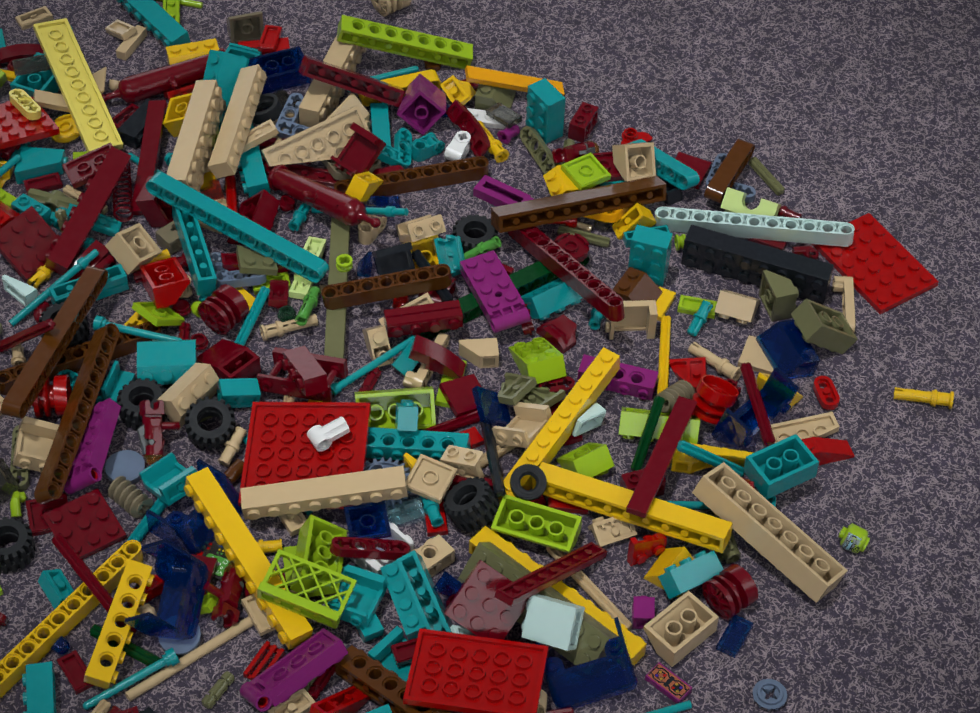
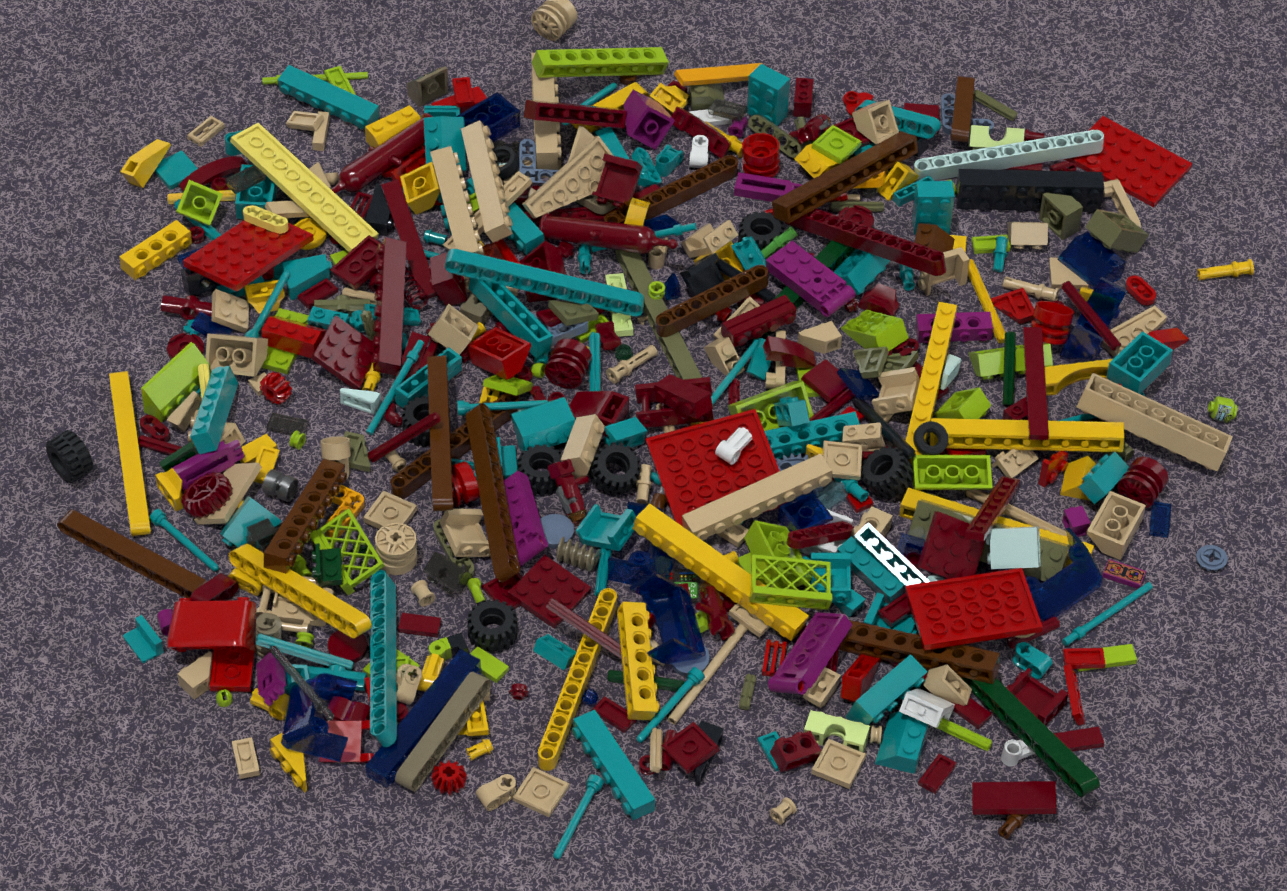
camera: 20 degrees left, 0 degrees up
(309, 302) = (641, 336): bright green pin -> none
(512, 164) = (761, 155): none -> red wheel
(679, 388) = (1015, 324): dark tan piece -> none
(707, 457) = (1067, 373): teal axle -> none

